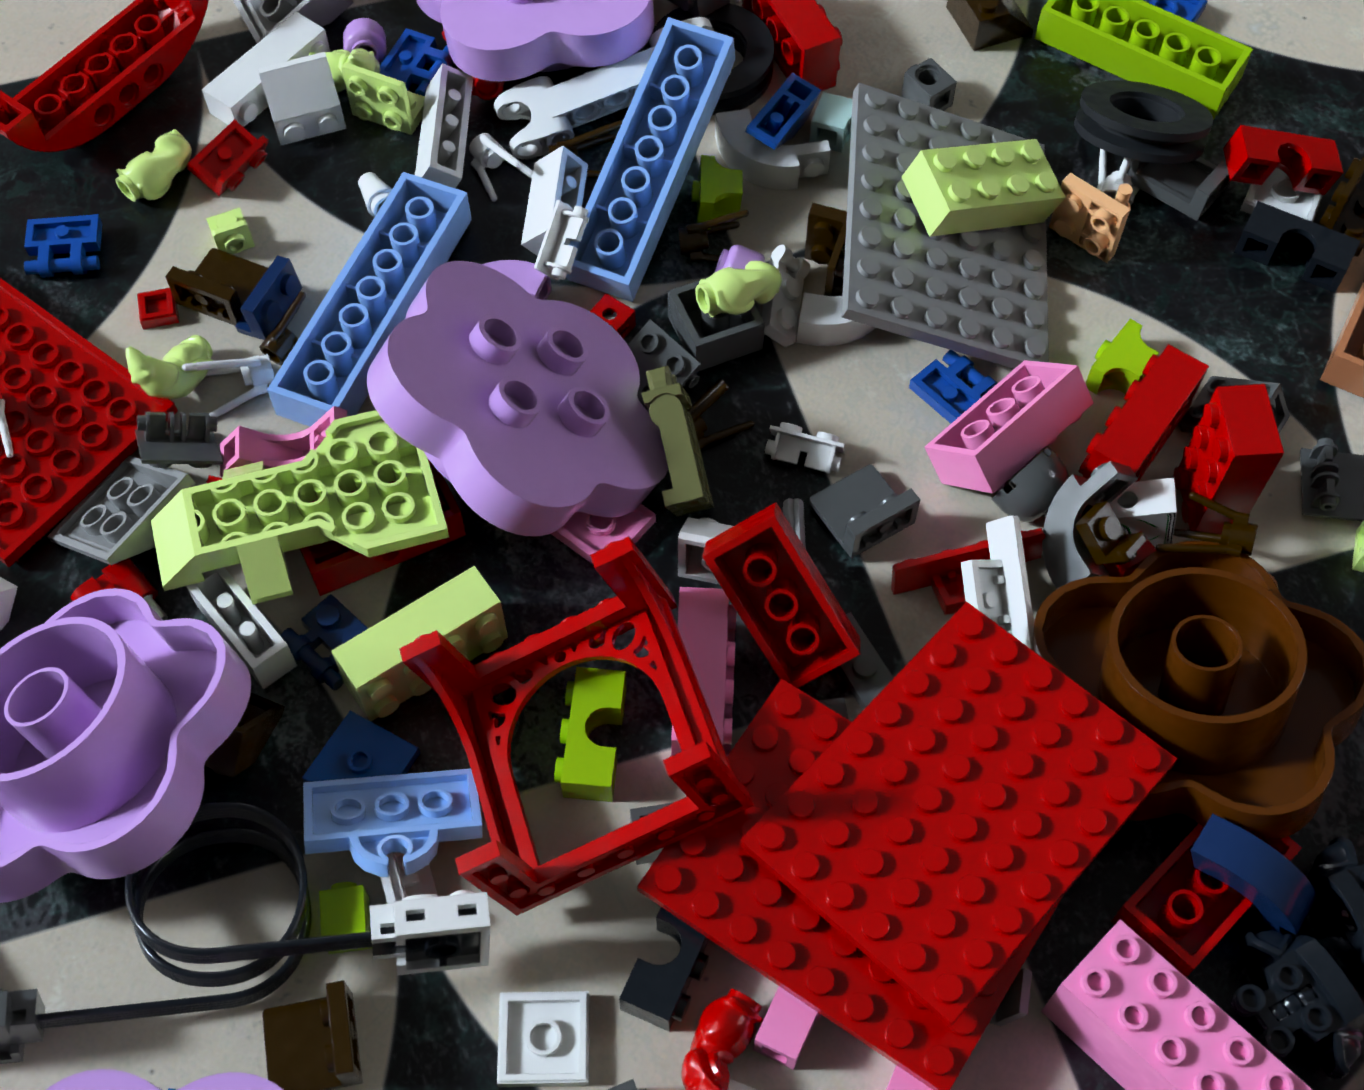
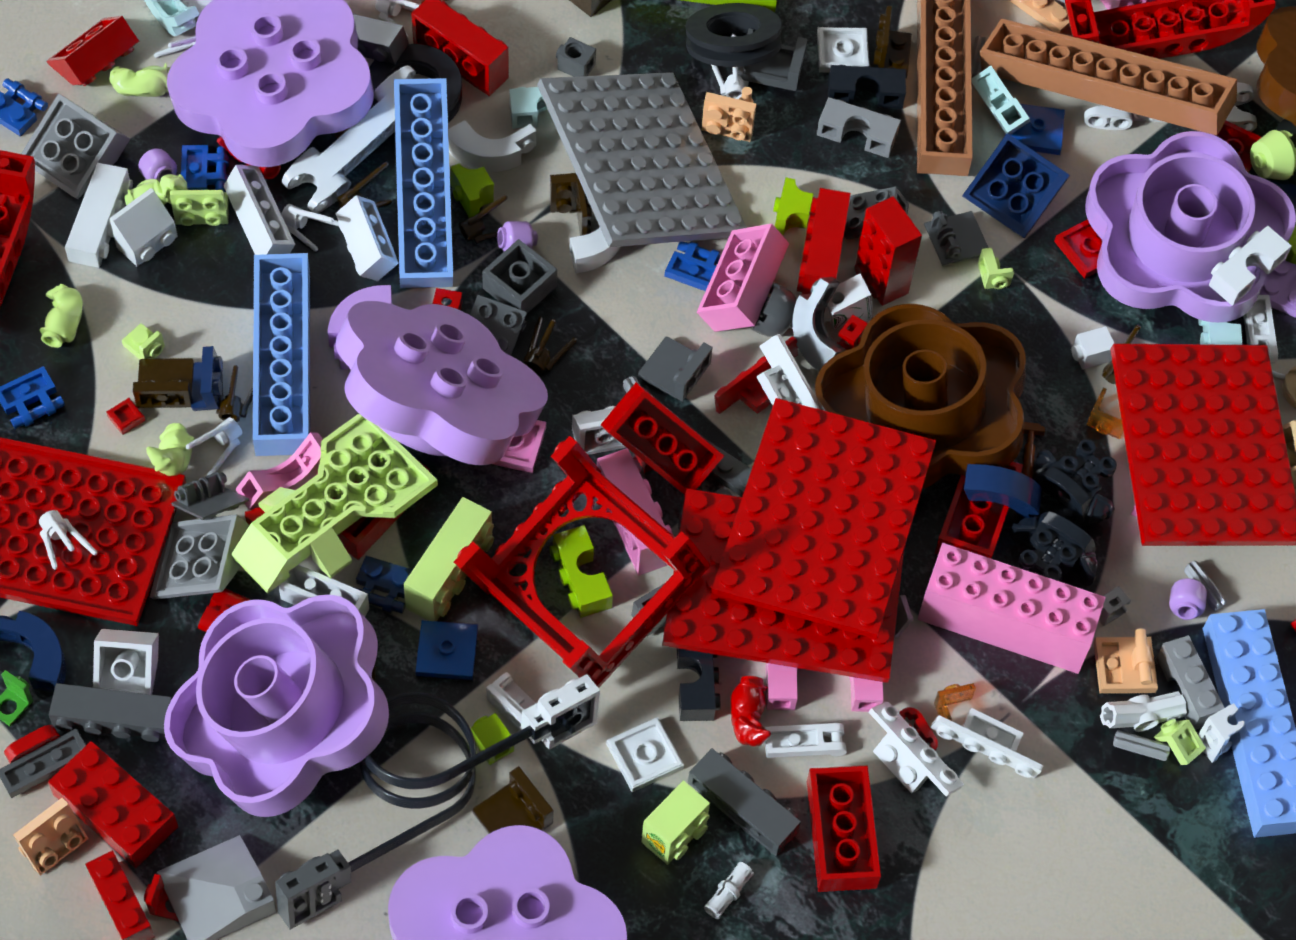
camera: 30 degrees left, 0 degrees up
(228, 157) = (111, 290): red bracket -> none
(373, 191) = (237, 278): white cone -> none
(391, 816) = (491, 666): light blue plate -> none
(556, 254) = (395, 276): white hinge -> none
(668, 411) = (539, 359): olive hips -> none
(736, 289) = (531, 253): yellowish green animal -> none
(783, 311) = (553, 243): white plate -> none
(784, 112) = (492, 114): blue slope -> none
(819, 448) = (629, 339): white hinge -> none
(982, 187) = (655, 122): yellowish green brick -> none
(1106, 537) = (835, 326): dark brown bracket -> none
(1235, 536) = (911, 297): dark brown plant -> none
(1245, 273) = (842, 117): none -> light grey arch
(1307, 160) = (818, 31): red arch -> none
(1324, 824) = (1029, 448): none -> dark orange piece

